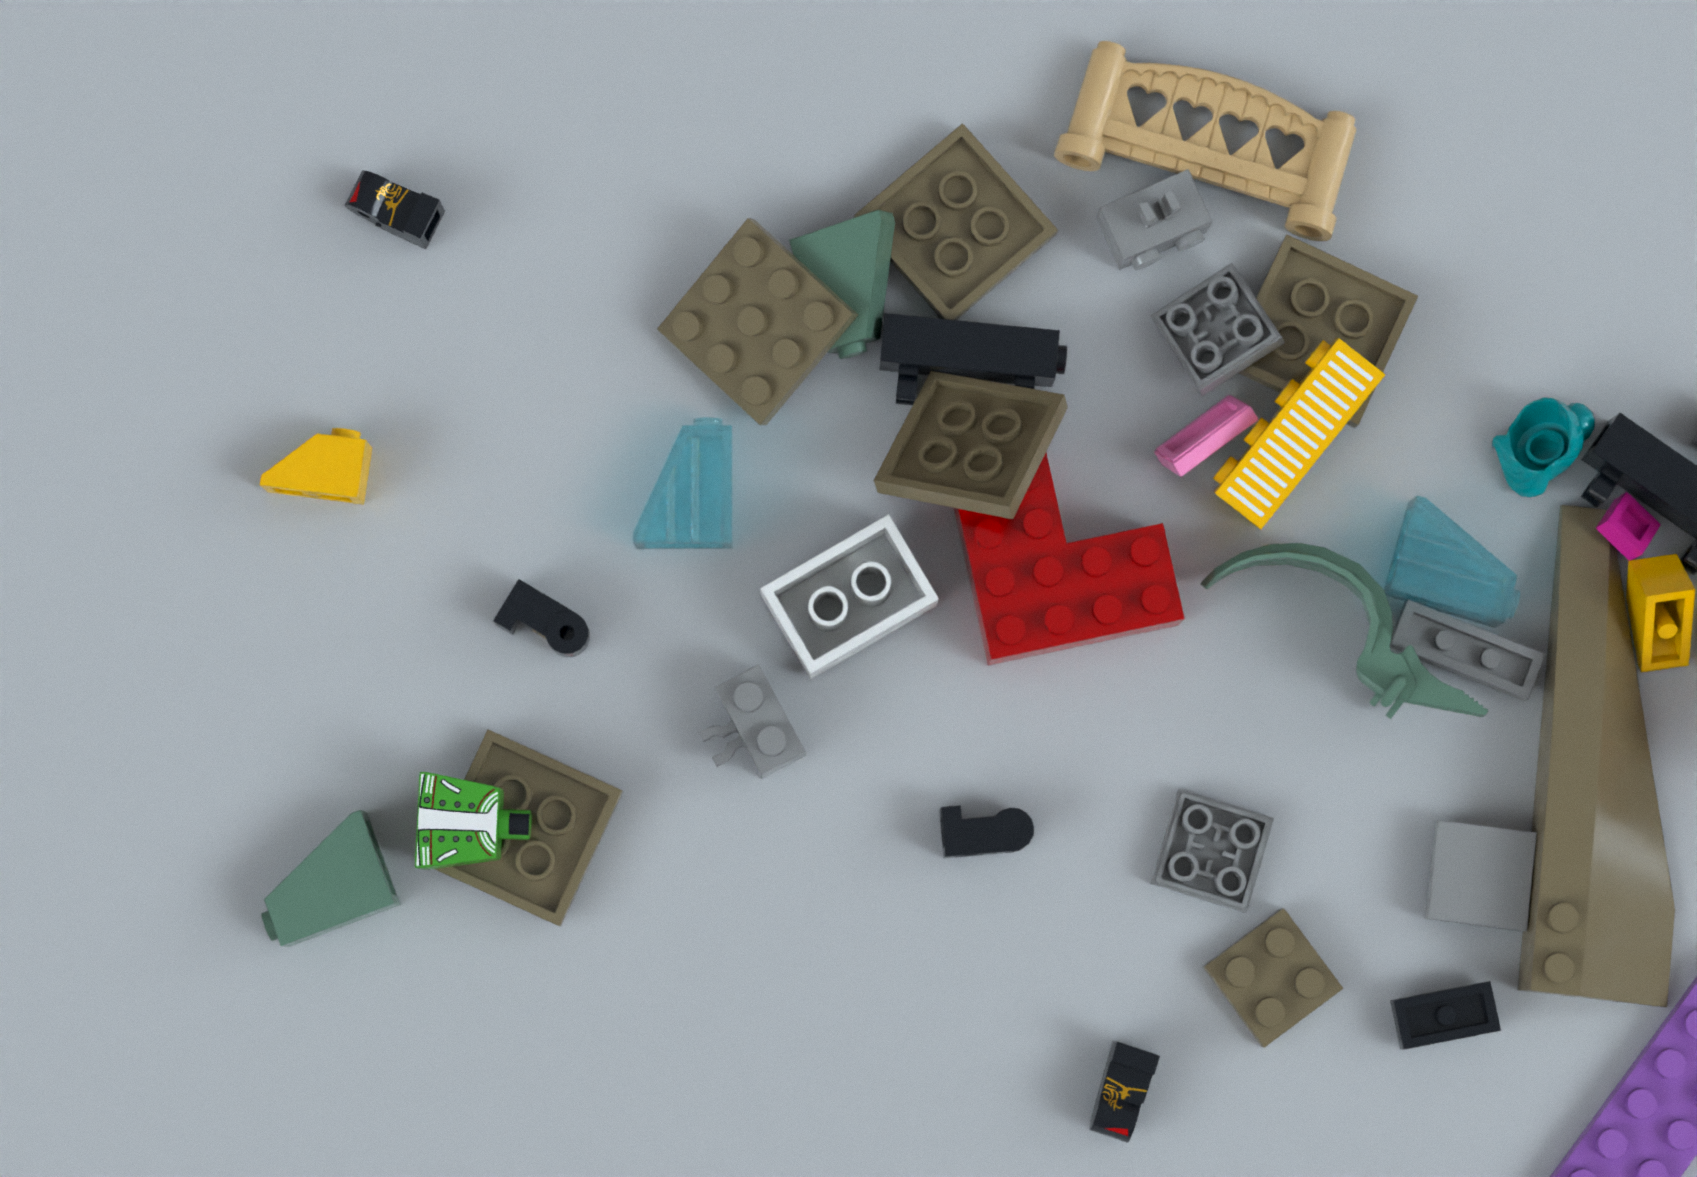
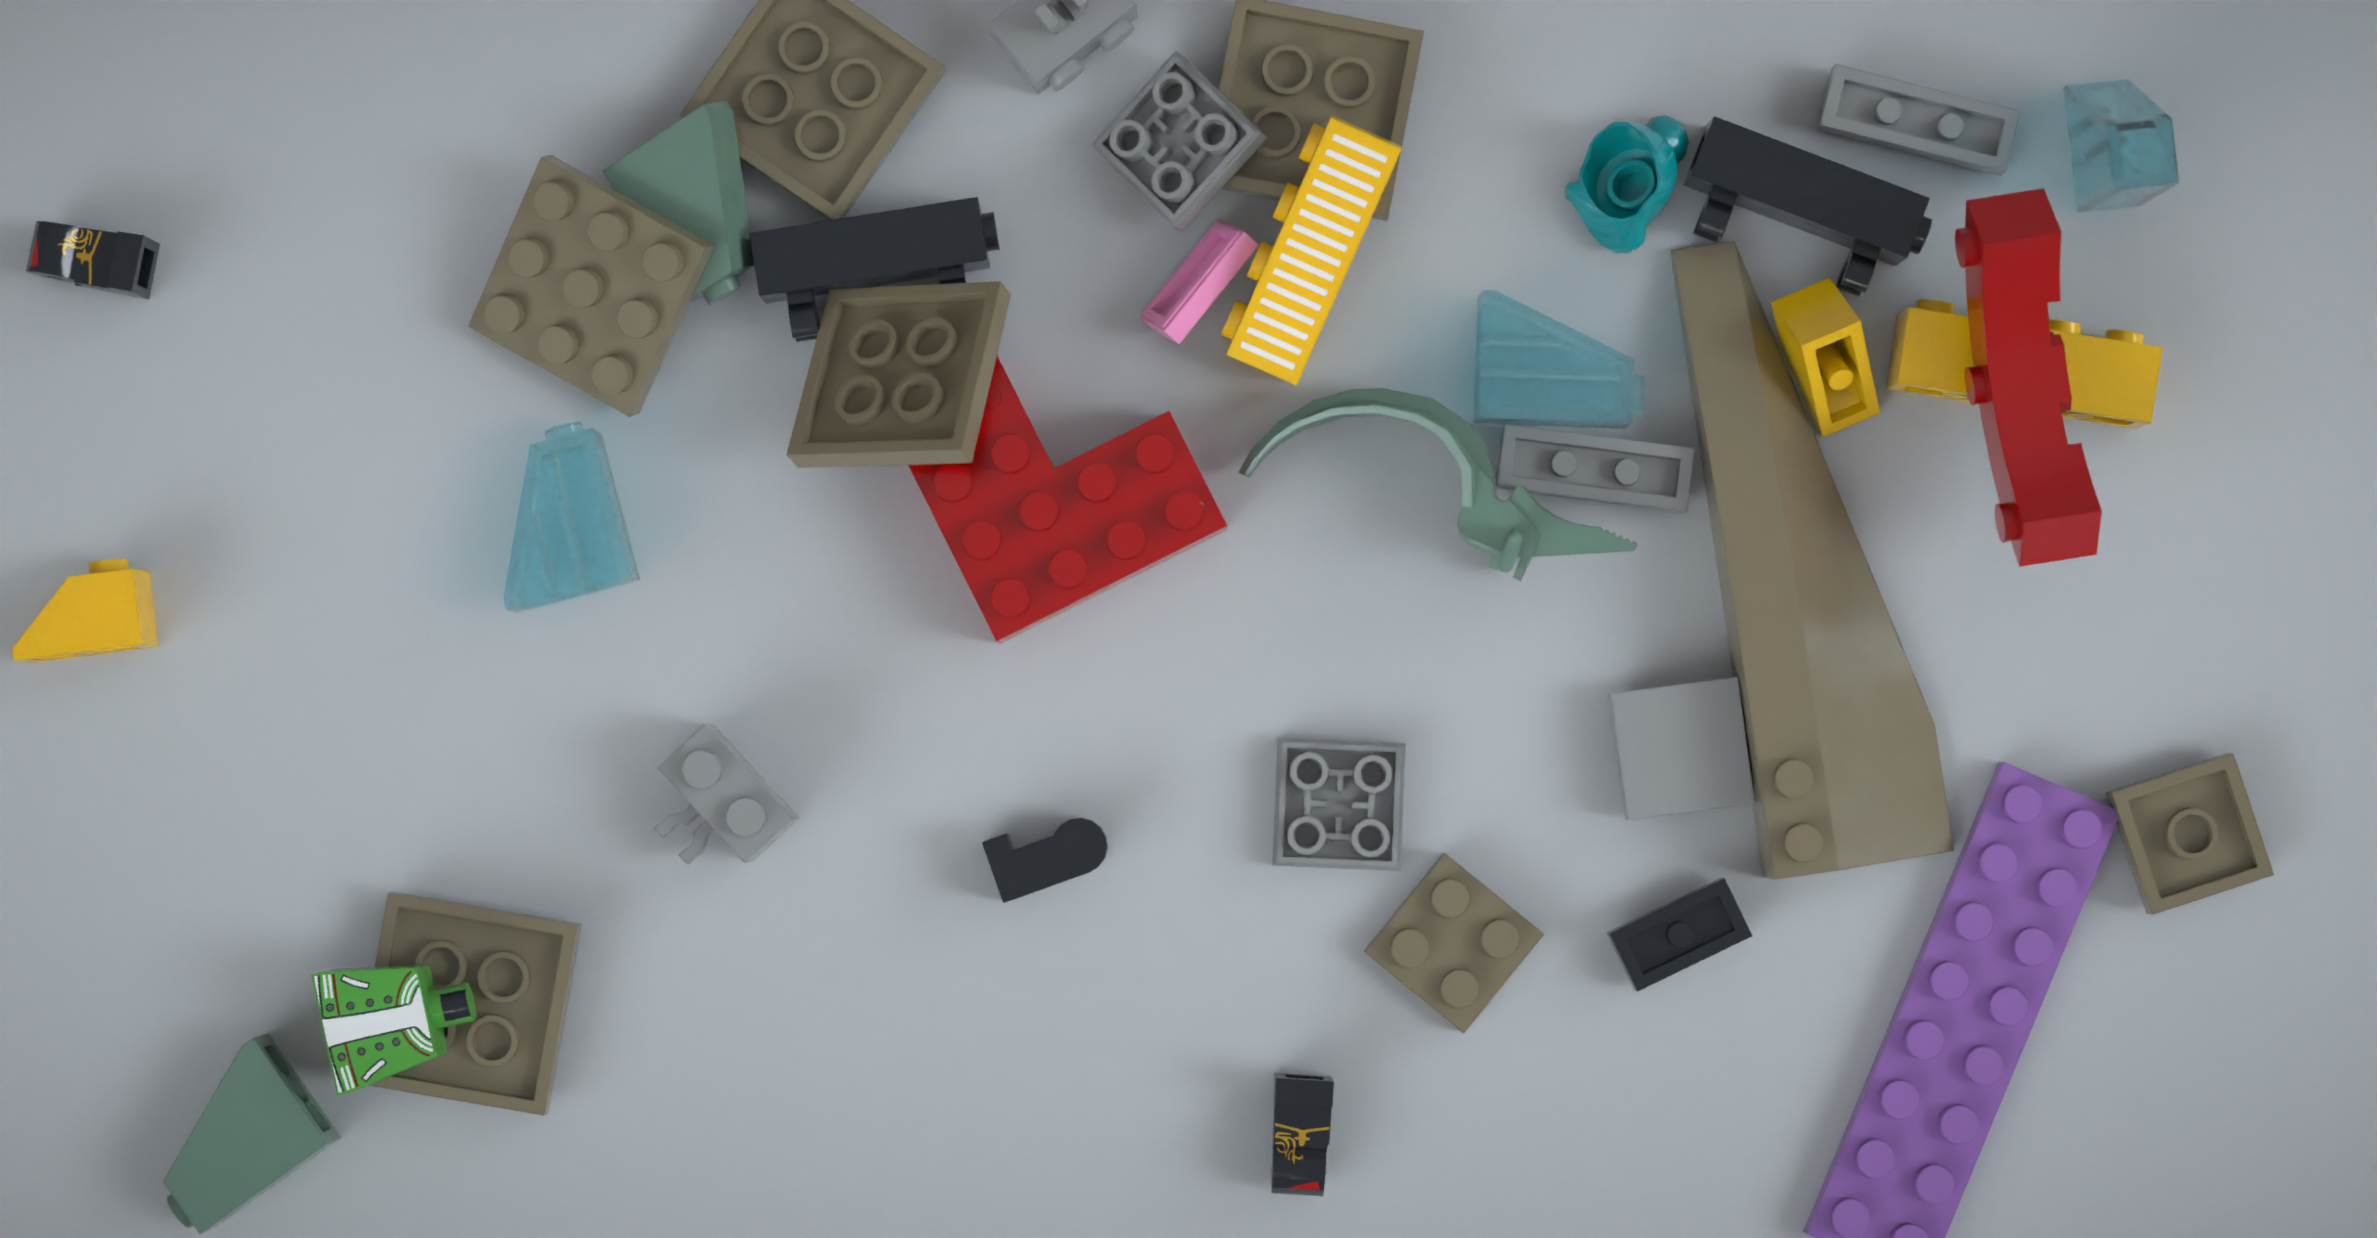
camera: 15 degrees left, 5 degrees up
(561, 627) = (447, 739): black leg -> none
(849, 596) = (797, 607): white brick -> none
(1628, 526) = (1761, 257): dark pink plate -> none

